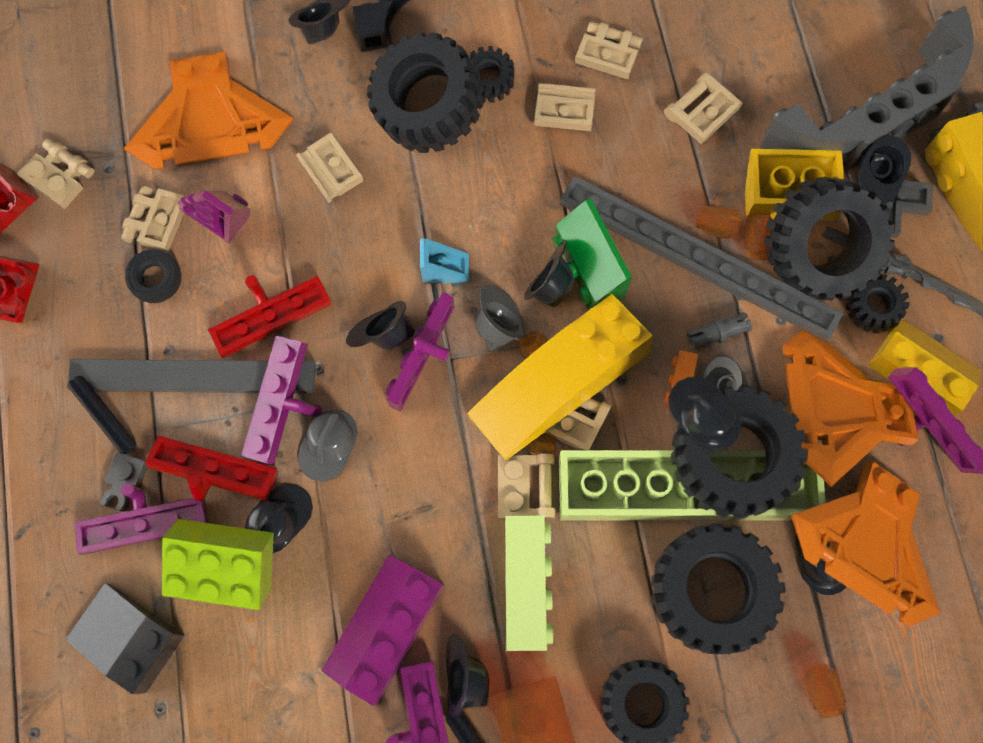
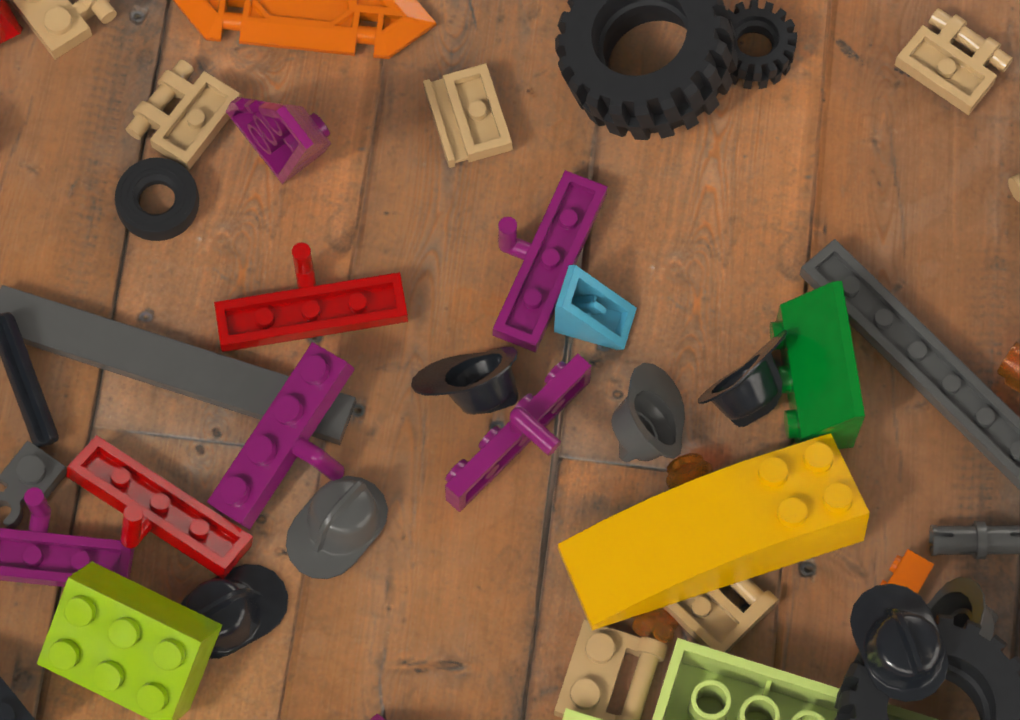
camera: 15 degrees right, 5 degrees down
(405, 240) = (546, 259): none -> magenta plate
(564, 107) = (855, 129): tan plate -> none

